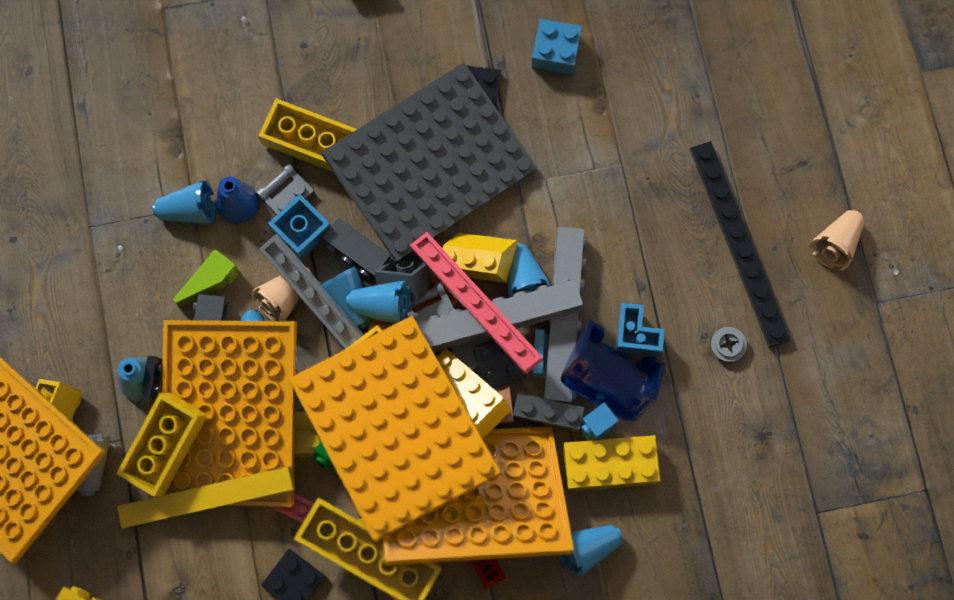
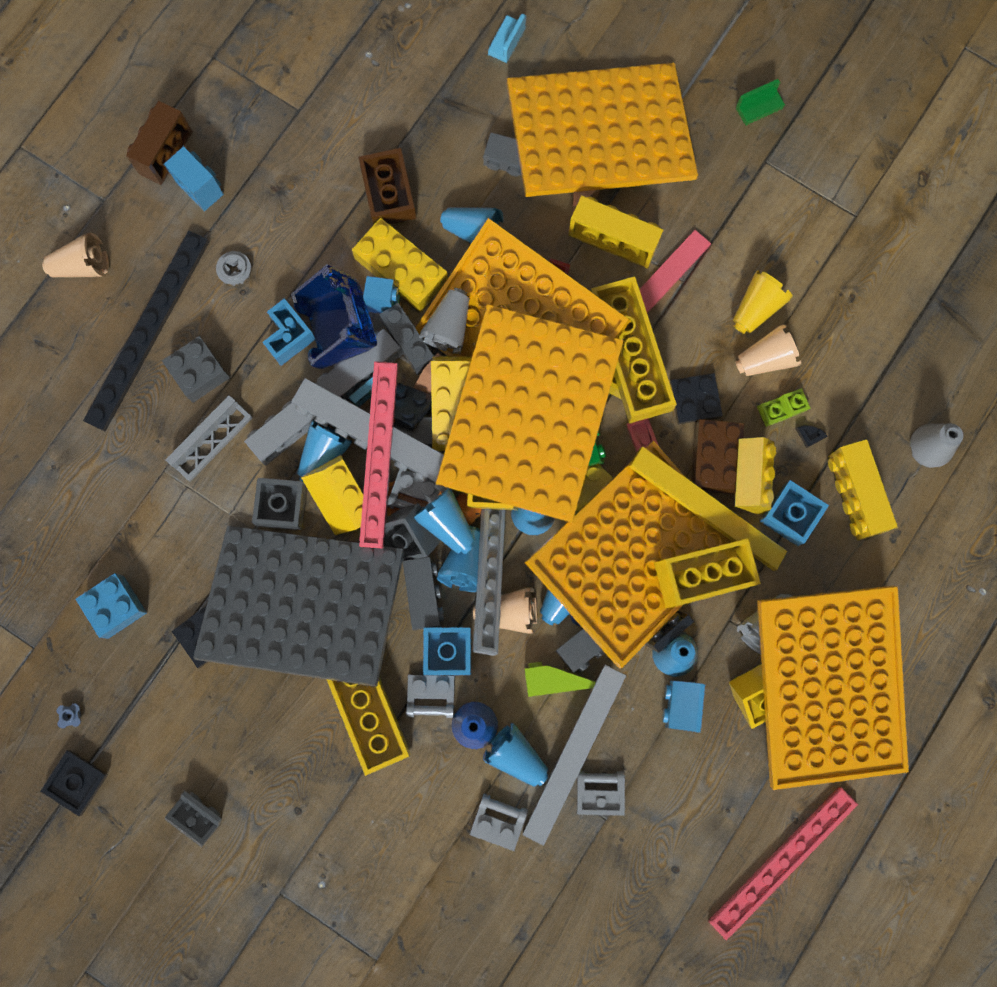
camera: 135 degrees left, 5 degrees up
(99, 344) = (684, 706): none -> dark azure slope
(104, 232) = (601, 801): none -> light grey plate
(139, 558) = (794, 513): none -> dark azure brick
(148, 244) = (574, 755): none -> light grey tile
(159, 152) = (495, 829): none -> light grey plate
(192, 554) = (755, 474): none -> yellow slope
(235, 547) = (716, 455): none -> reddish brown brick
(514, 212) = (279, 504): none -> dark grey brick
(524, 445) = (448, 322): none -> light grey cone
(619, 208) = (203, 433): none -> light grey fence
(673, 247) = (195, 369): none -> dark grey brick
(682, 512) = (387, 186): none -> reddish brown brick
(825, 376) = (194, 178): none -> dark azure brick
(881, 377) = (158, 141): none -> reddish brown brick

